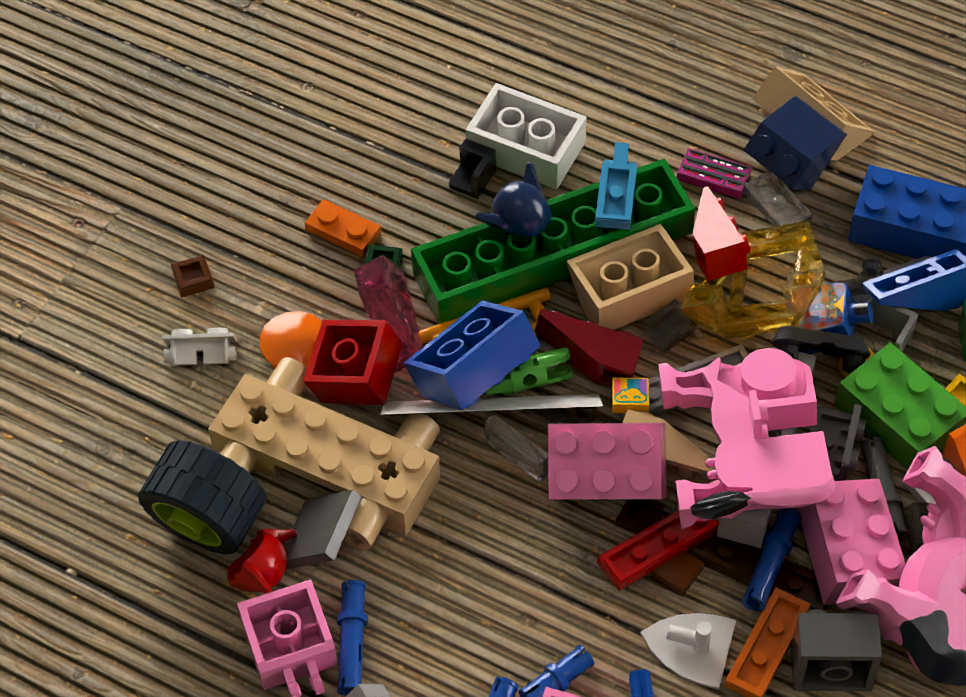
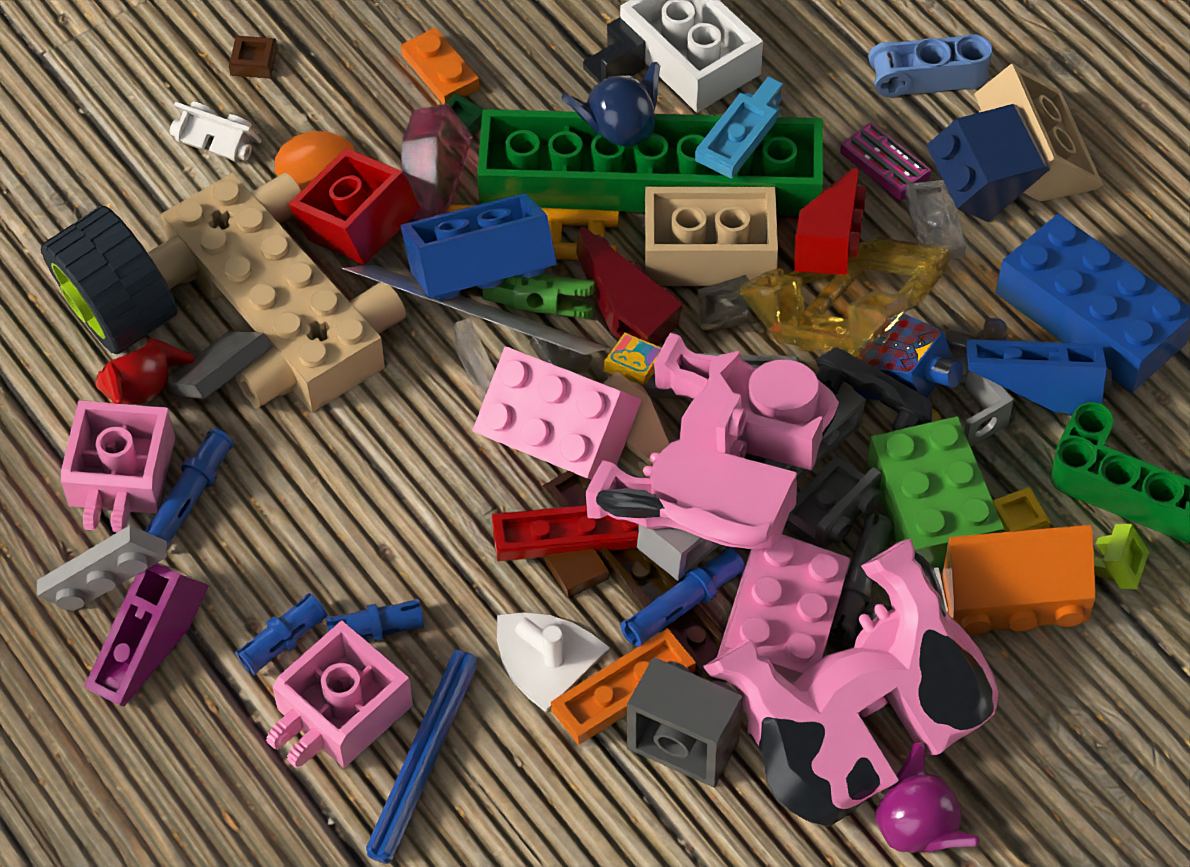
camera: 25 degrees right, 0 degrees up
(706, 88) = (931, 65): none -> medium blue piece

